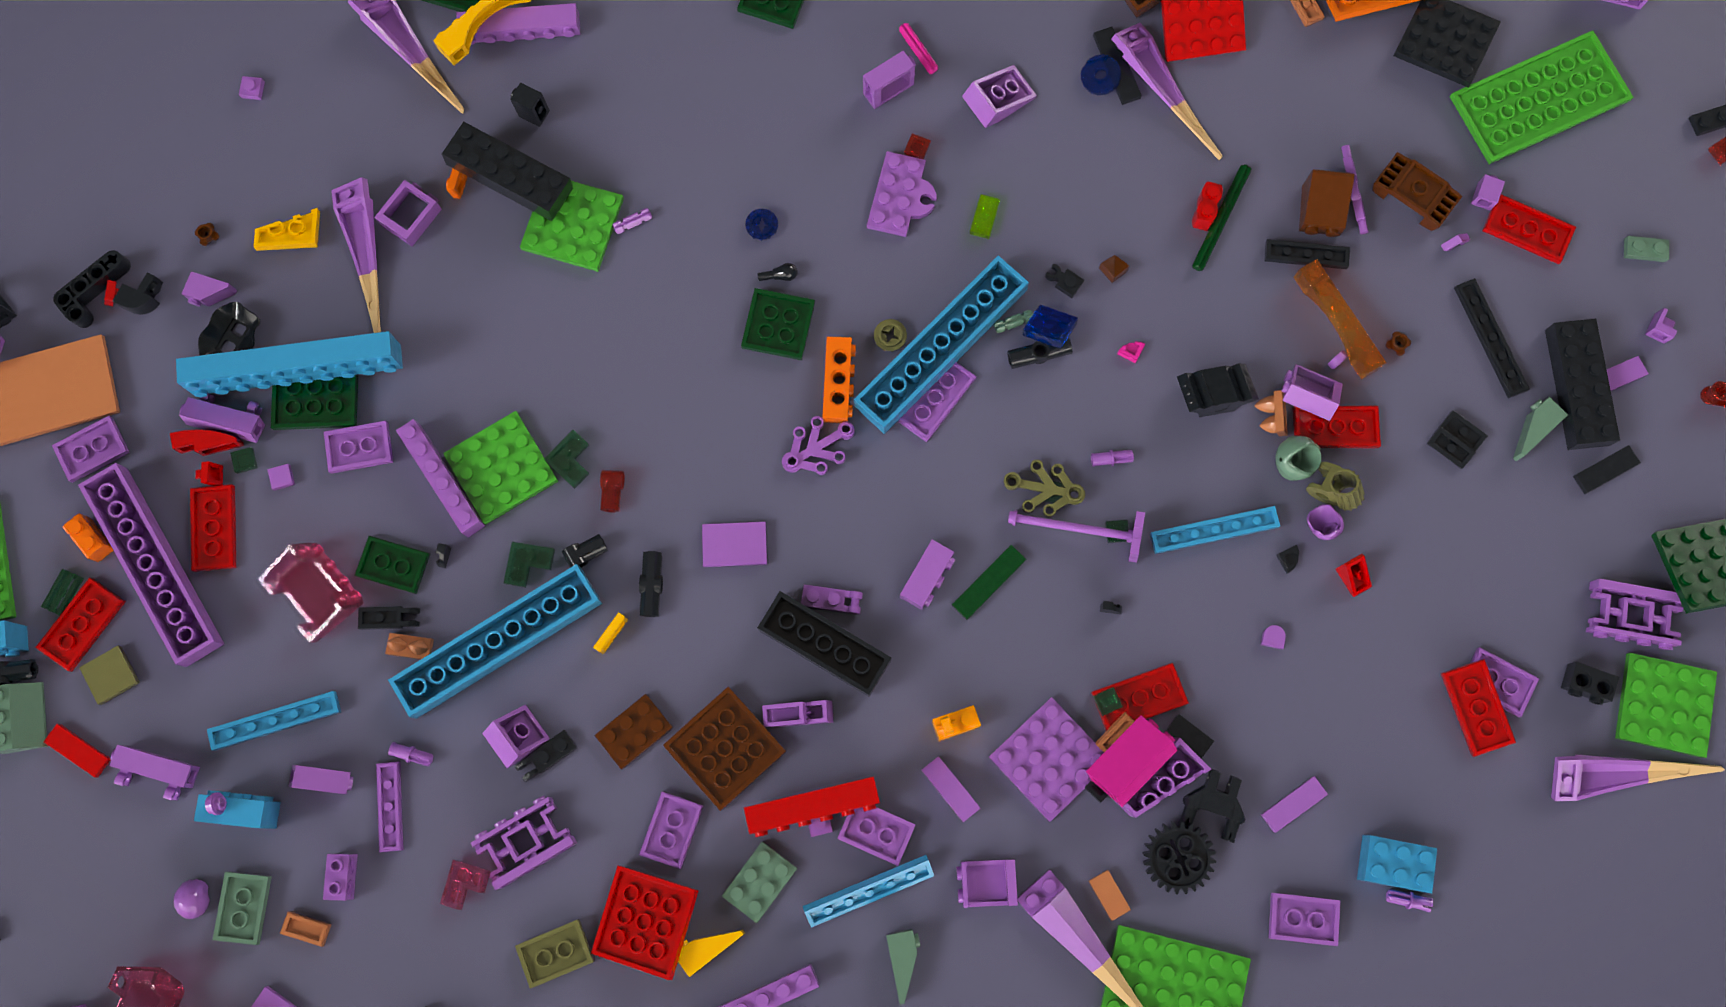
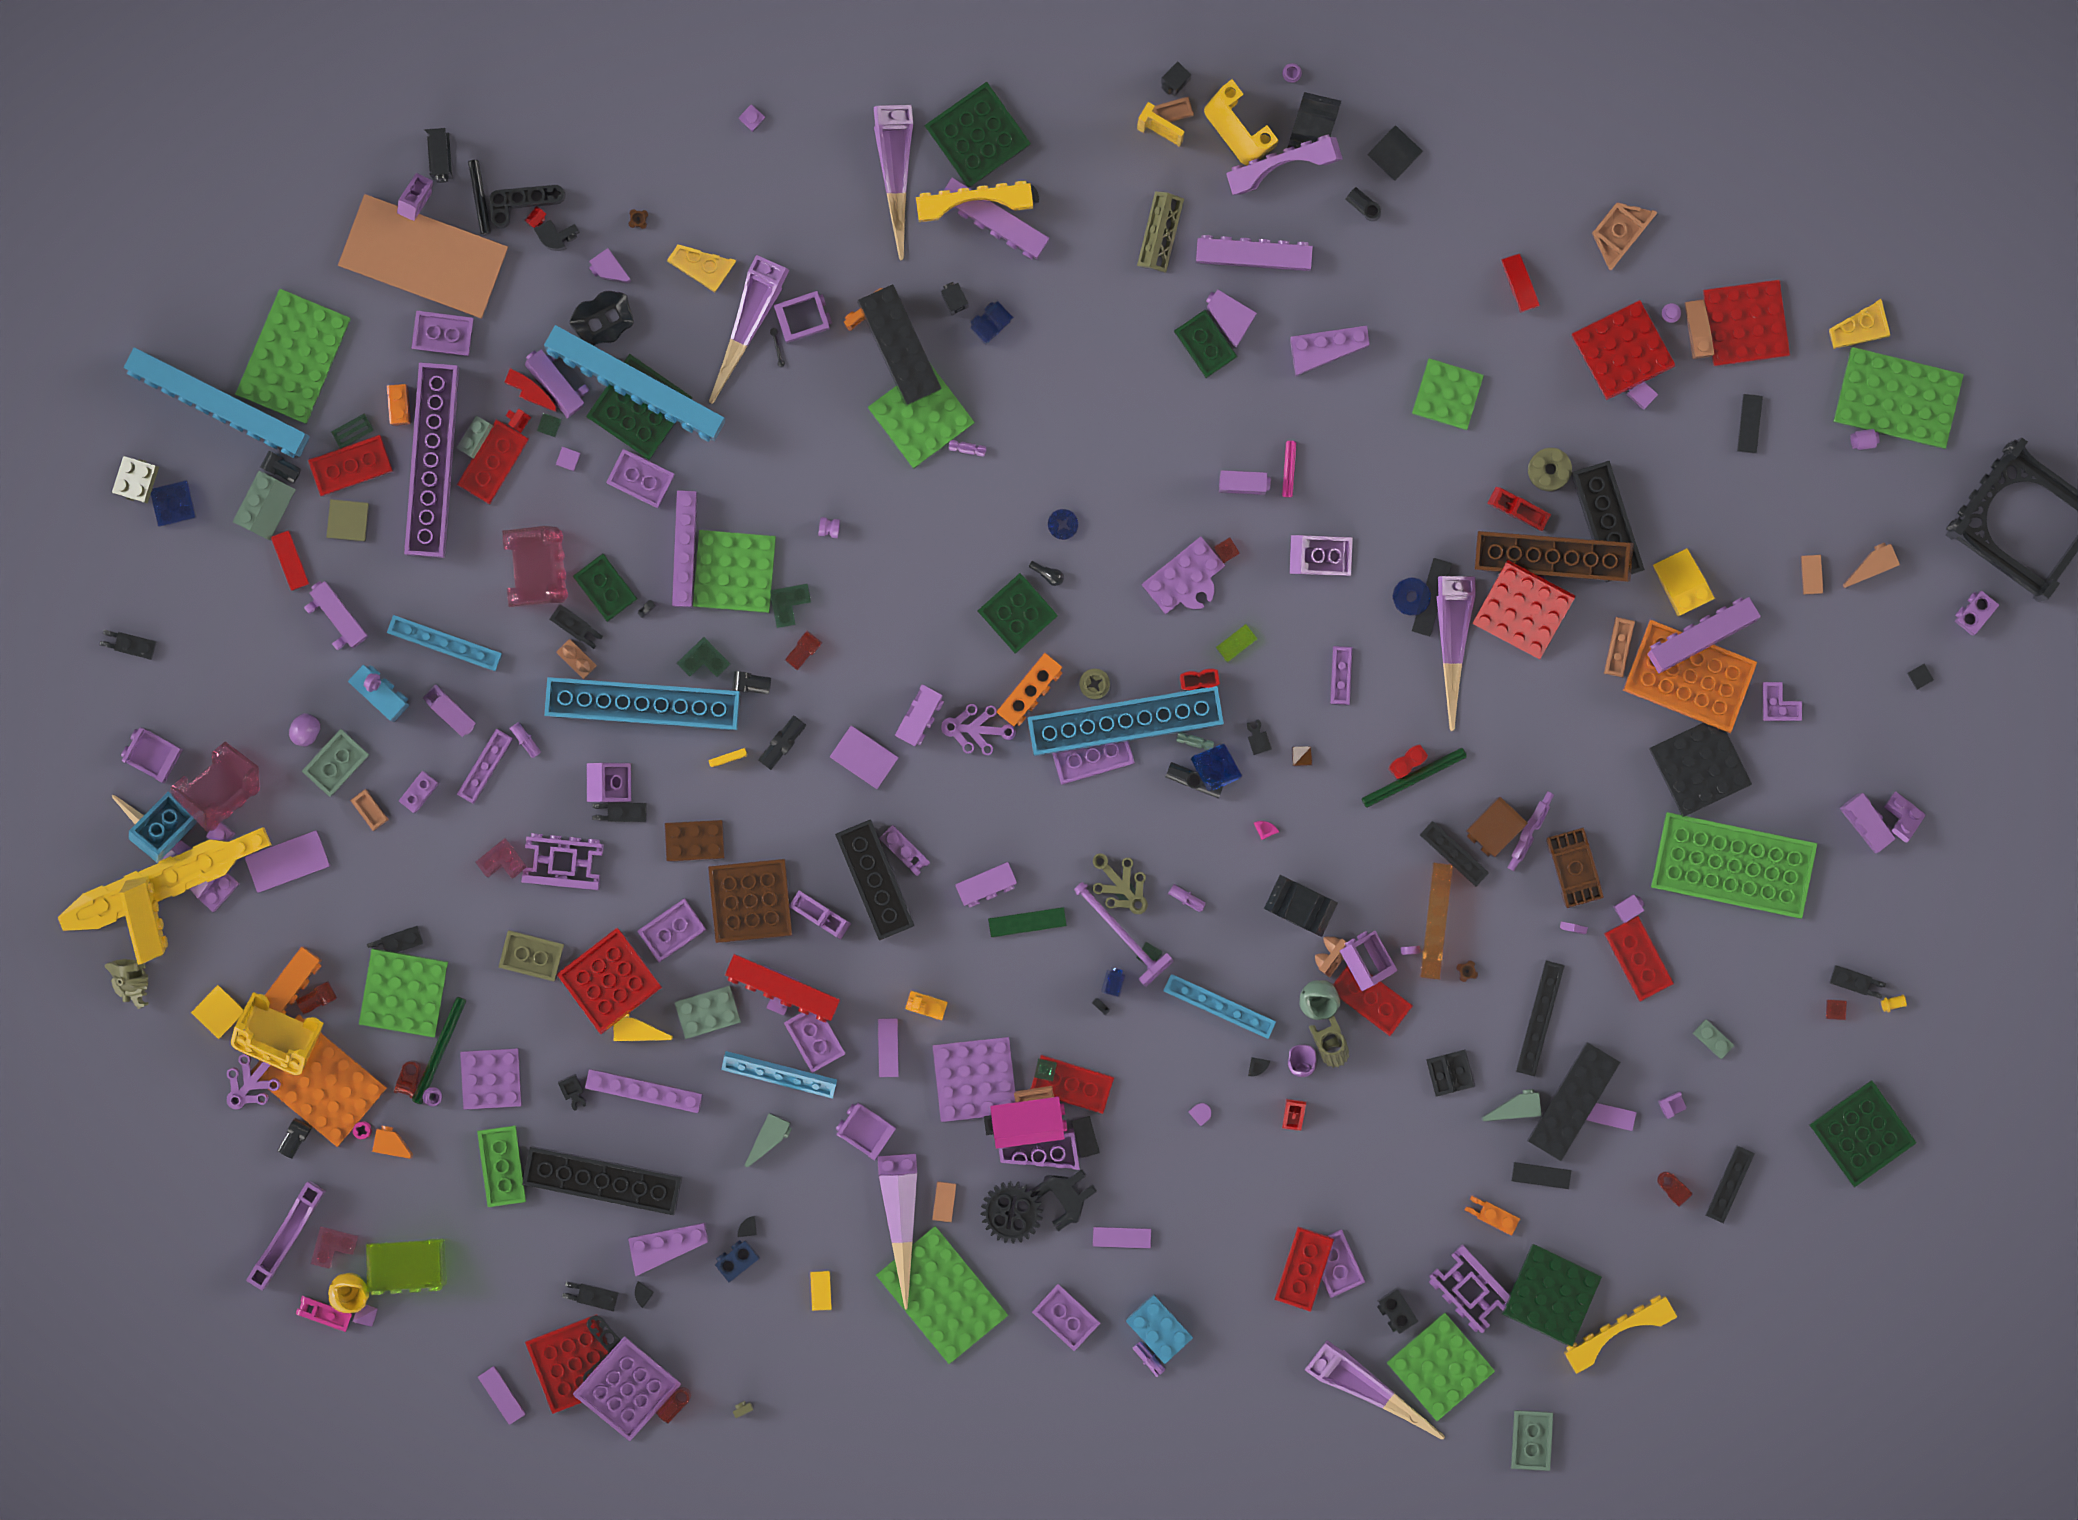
camera: 35 degrees right, 10 degrees up
(49, 312) = (479, 197): none -> black axle
(180, 517) = (474, 437): none -> sand green plate
(394, 245) = (774, 332): none -> black hinge
(558, 369) = (829, 527): none -> medium lavender wheel
(577, 105) = (991, 322): none -> clear blue brick
(757, 469) = (919, 716): none -> medium lavender wedge
(976, 264) = (1193, 680): none -> red brick
(1093, 180) = (1341, 675): none -> medium lavender tile
(1107, 576) = (1113, 982): none -> clear blue brick
(1598, 535) = (1494, 1216): none -> orange hinge

